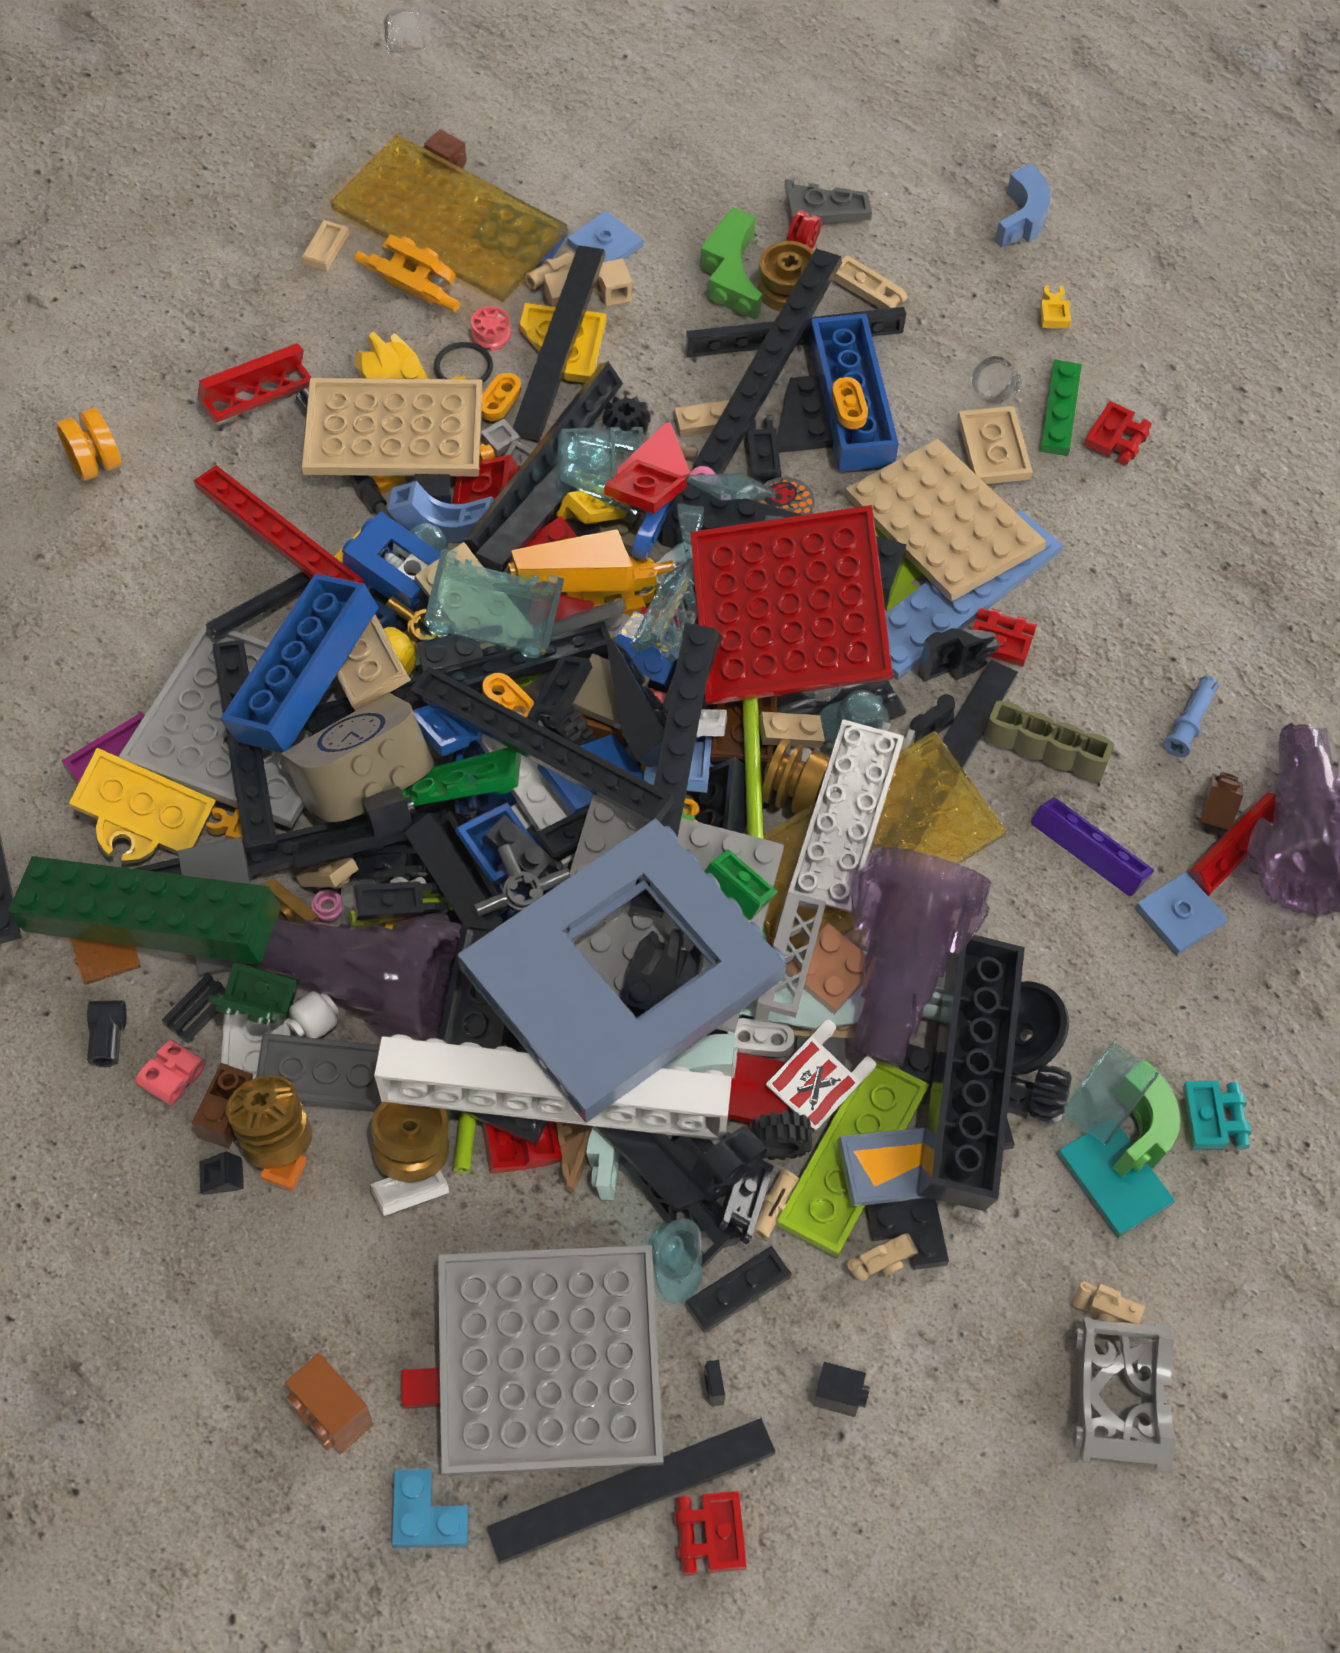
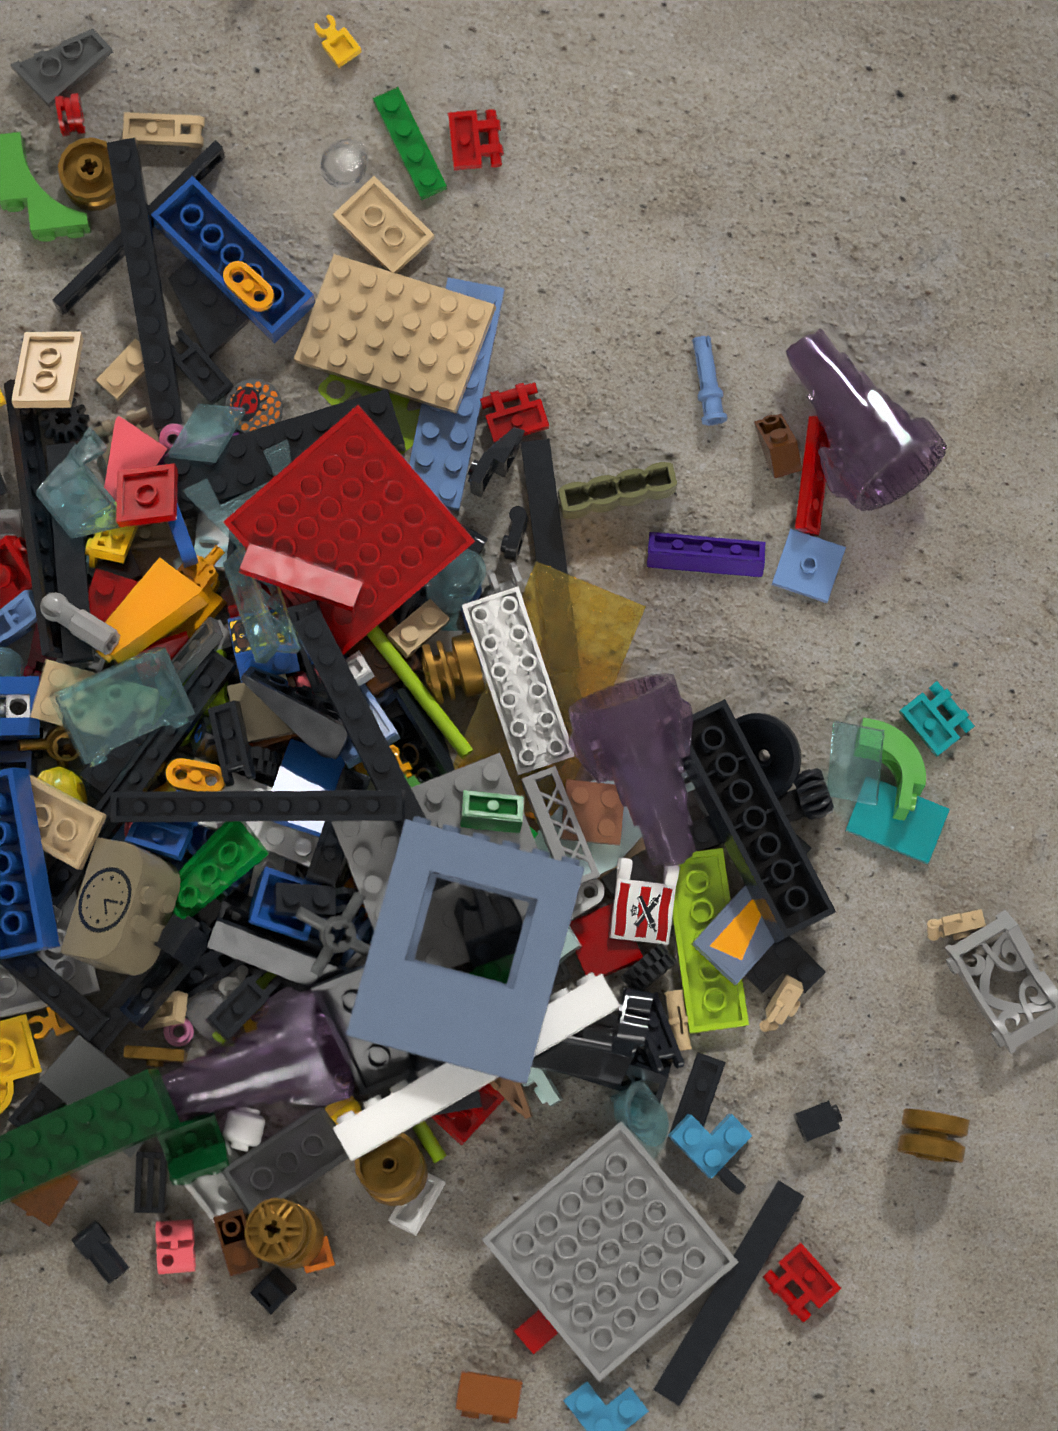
camera: 35 degrees left, 20 degrees up
(512, 530) = (80, 622): none -> light grey piece
(642, 373) = (47, 370): none -> tan plate
(716, 1340) = (711, 1149): none -> dark azure plate
(721, 610) = (300, 577): none -> tile
(947, 1481) = (933, 1134): none -> pearl gold wheel

